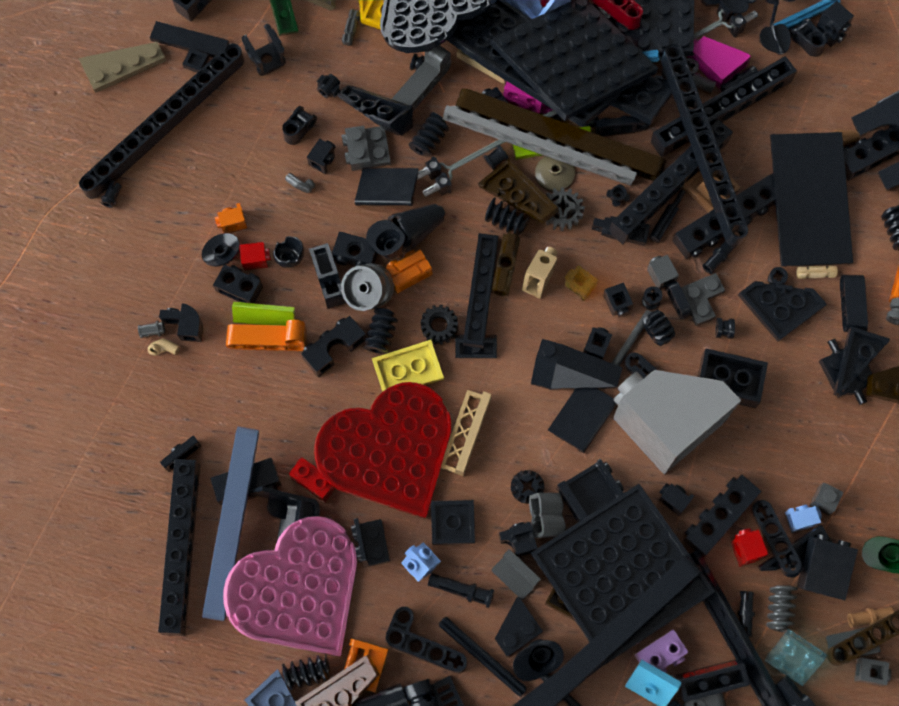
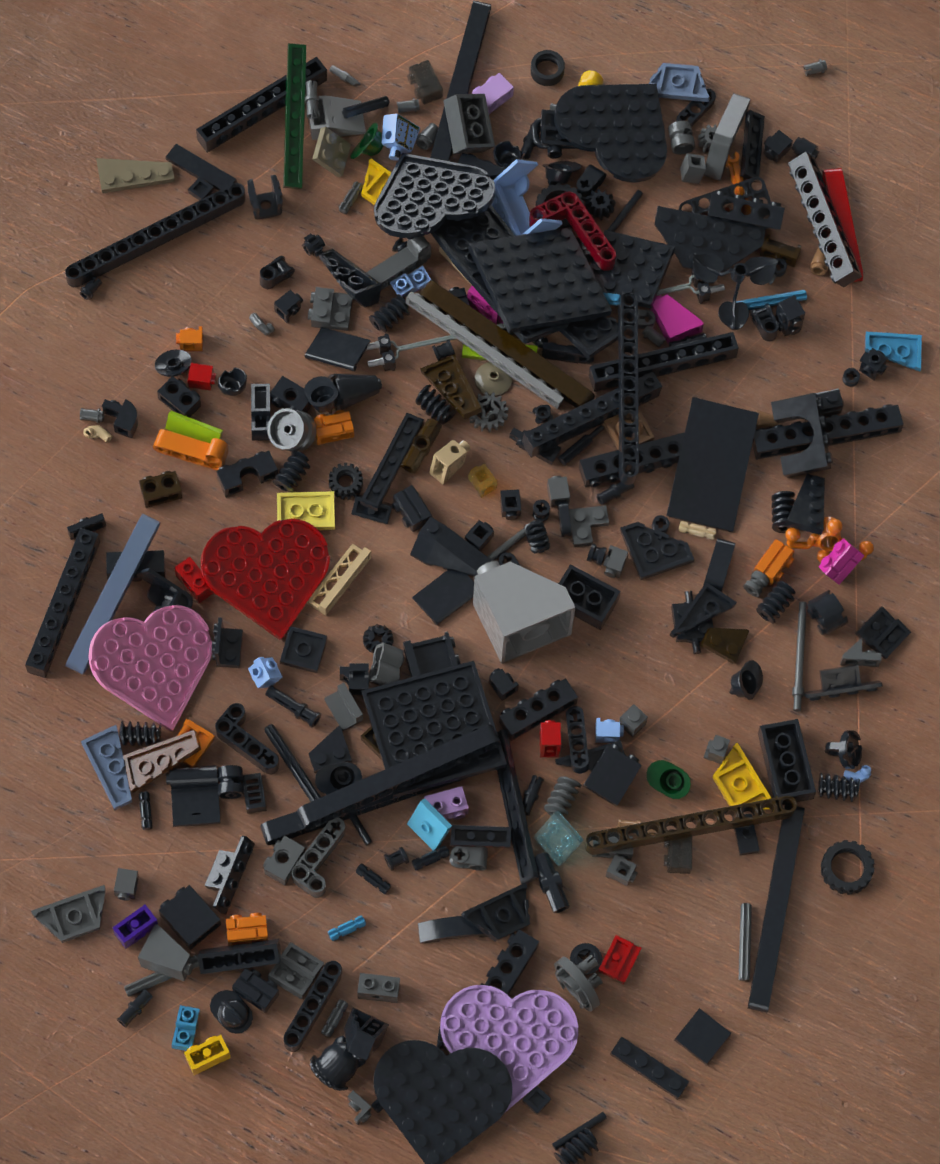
camera: 10 degrees right, 5 degrees down
(250, 394) = (161, 494): none -> dark brown brick
(438, 98) = (412, 282): none -> light blue slope
(517, 334) = (412, 508): none -> black brick
(746, 330) = (615, 562): none -> dark grey brick

